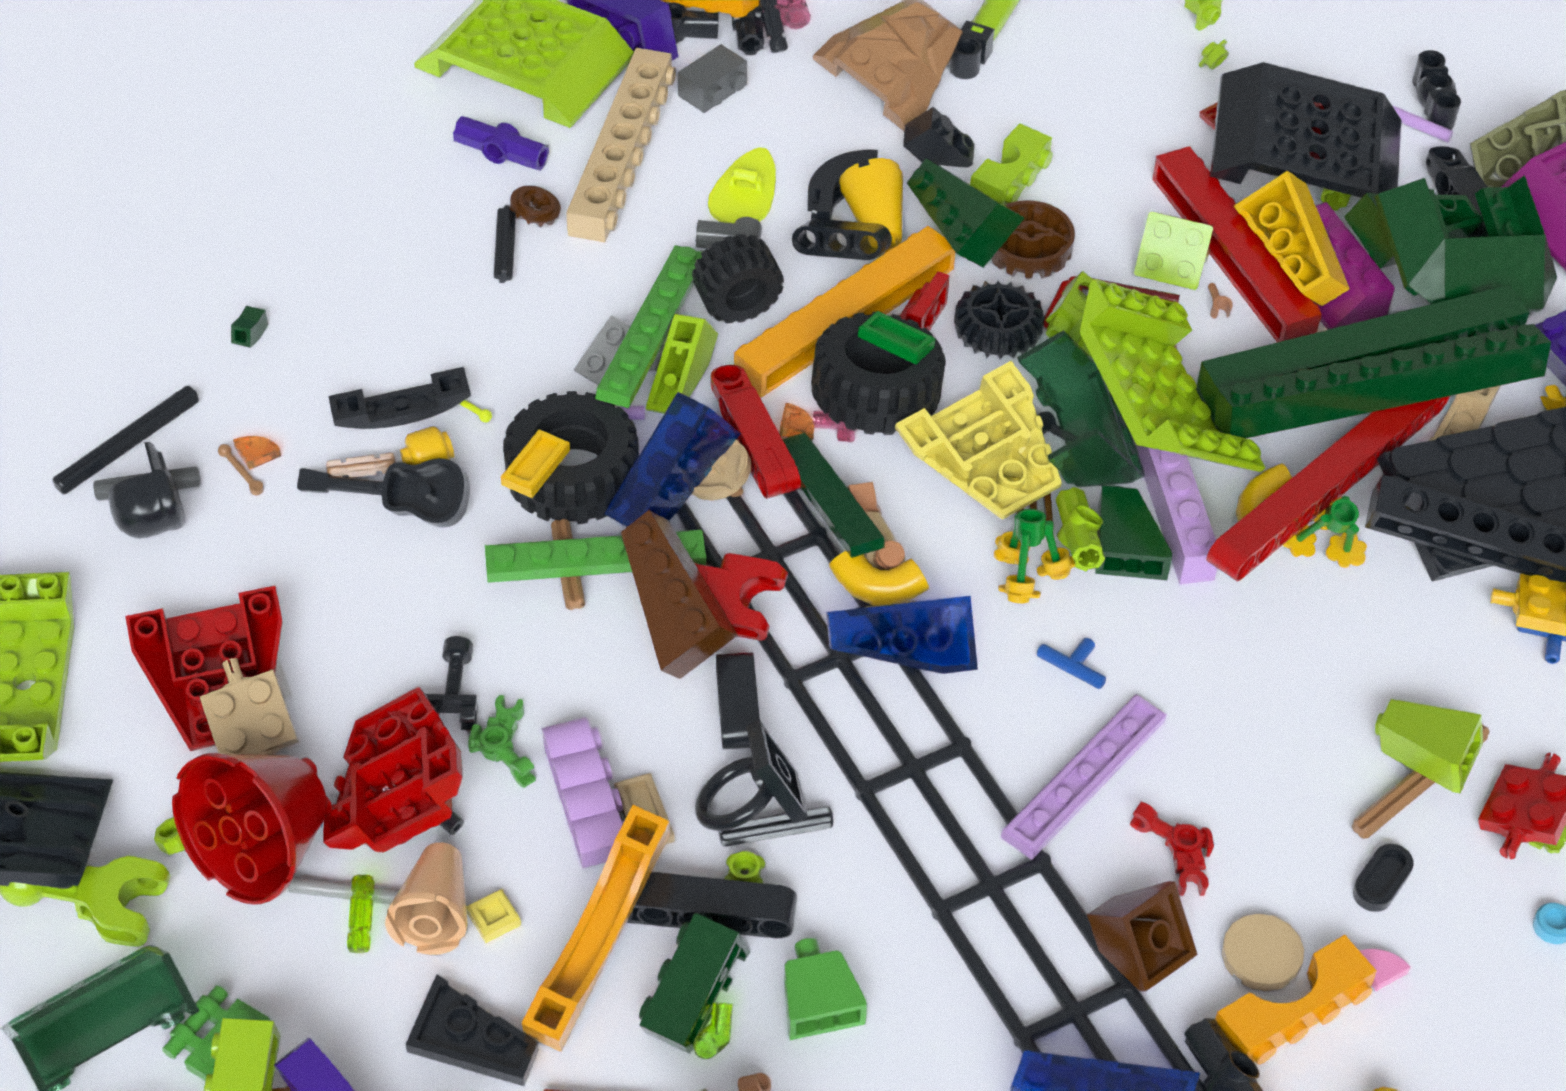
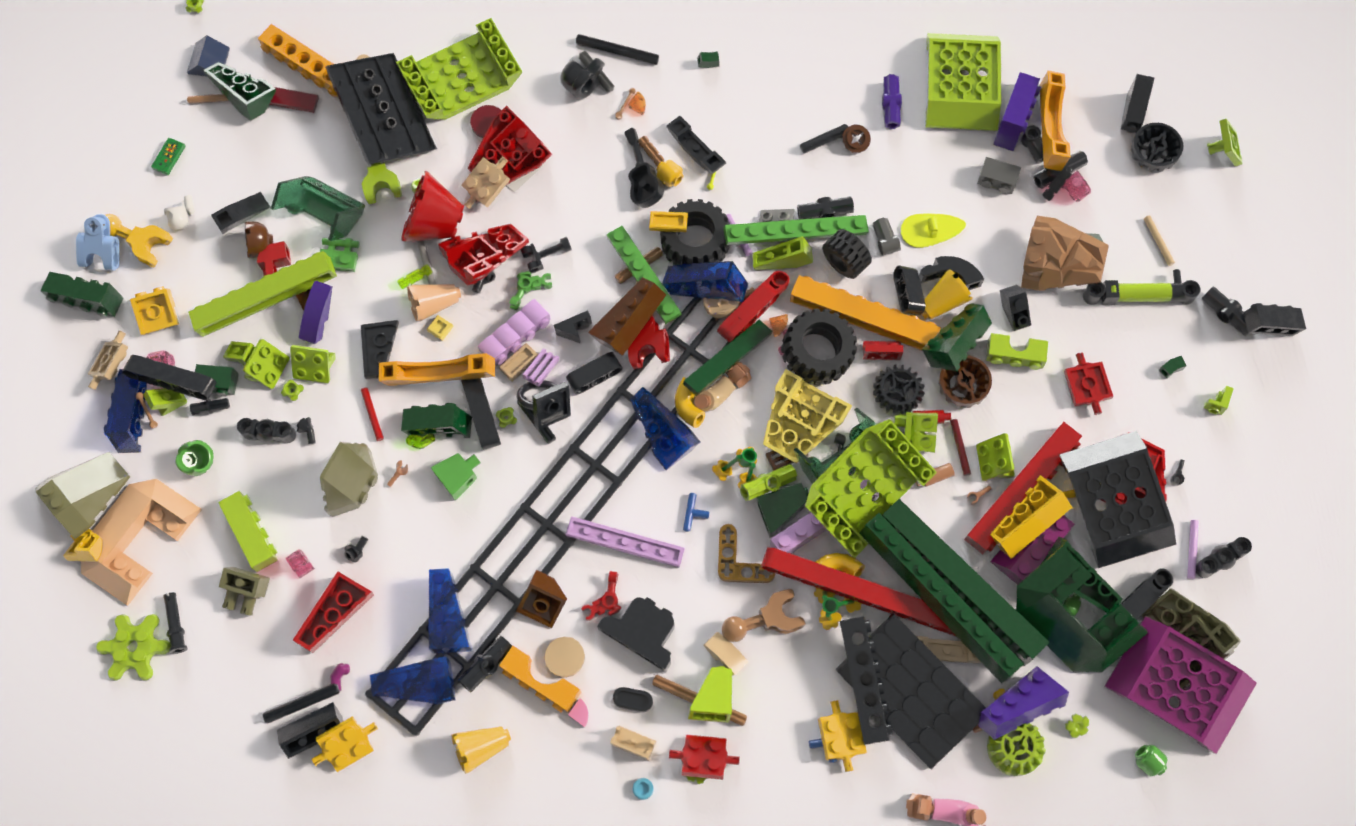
camera: 70 degrees right, 20 degrees up
(114, 681) = (482, 119): none -> dark red tile
(620, 145) = (984, 139): tan brick -> none
(631, 283) = (825, 207): none -> black piece
(633, 701) = (569, 327): none -> black slope
(690, 767) = (548, 356): none -> lavender tile
(896, 337) = (834, 344): green tile -> none
(1104, 118) = (1088, 383): none -> red plate
(1124, 31) = (1172, 366): none -> dark green piece
(1201, 641) = (736, 568): none -> pearl gold beam
(1214, 54) = (1179, 422): lime plate -> none
(1267, 808) = (643, 631): none -> black brick
(1313, 622) = (770, 617): none -> medium nougat piece
(1349, 706) = (725, 652): none -> tan slope
(1468, 903) = (633, 742): none -> tan hinge

